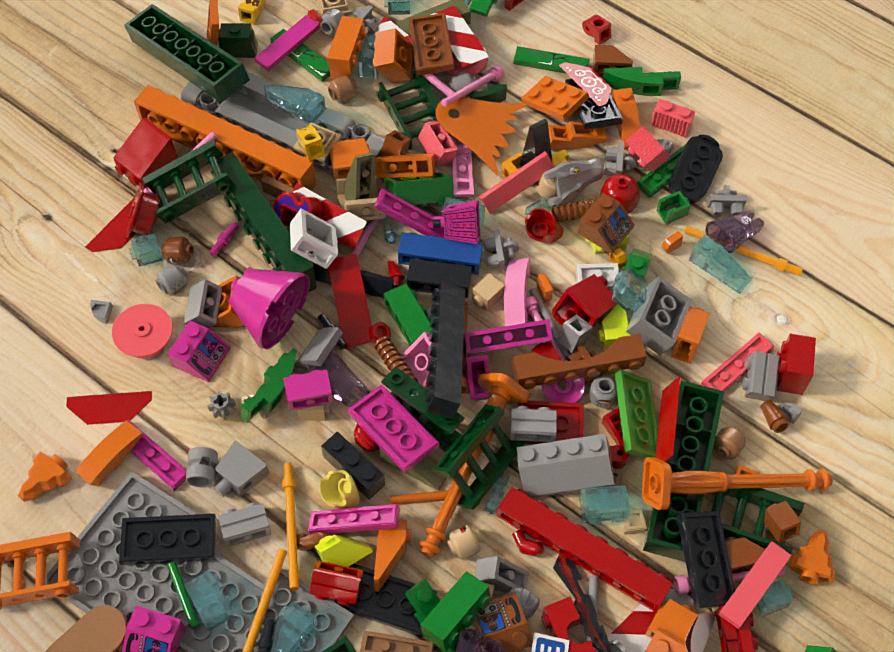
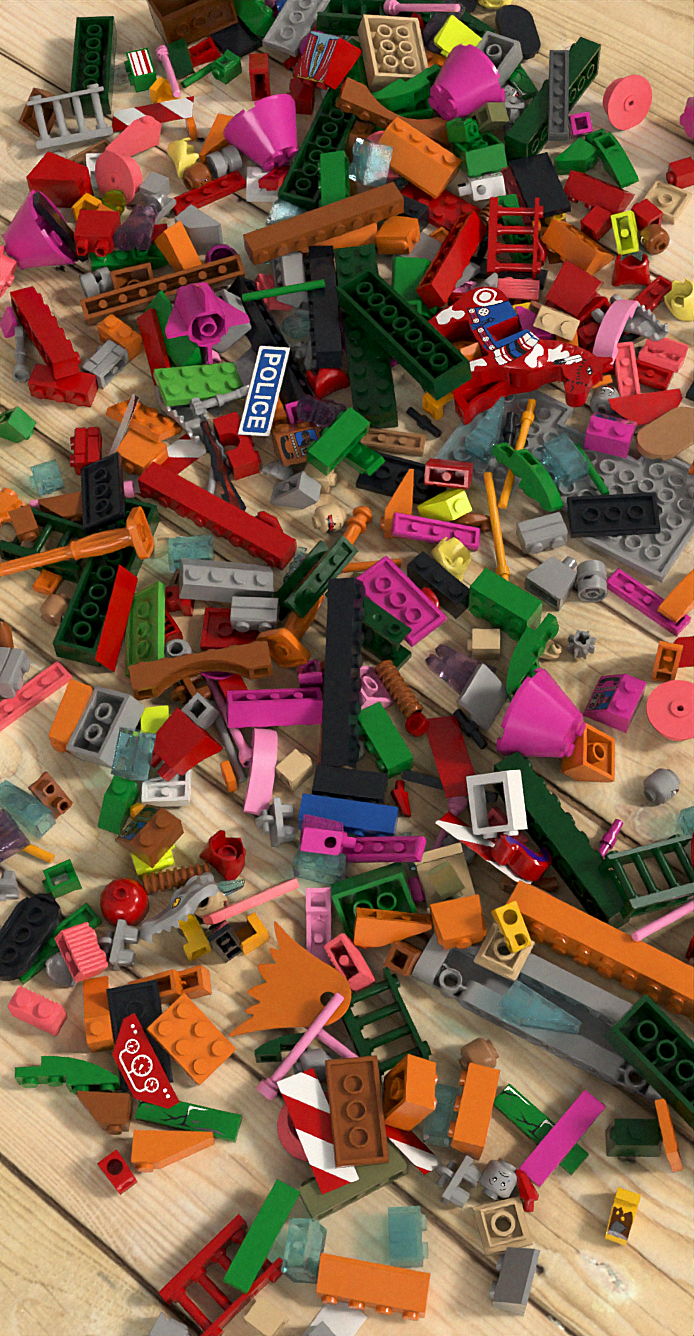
camera: 175 degrees left, 0 degrees up
(143, 375) = (666, 661): none -> orange slope
(177, 250) = (660, 819): dark orange head -> none
(203, 303) = (618, 746): light grey brick -> none
(249, 577) = (535, 479): none -> green slope
(289, 432) = (504, 604): none -> green brick
(308, 390) = (489, 638): dark pink brick -> none
(565, 40) = (161, 1148): none -> orange slope
(672, 242) = (72, 833): orange tile -> none
(696, 267) = (50, 794): none -> dark orange hips
(754, 585) = (62, 474): coral tile -> none

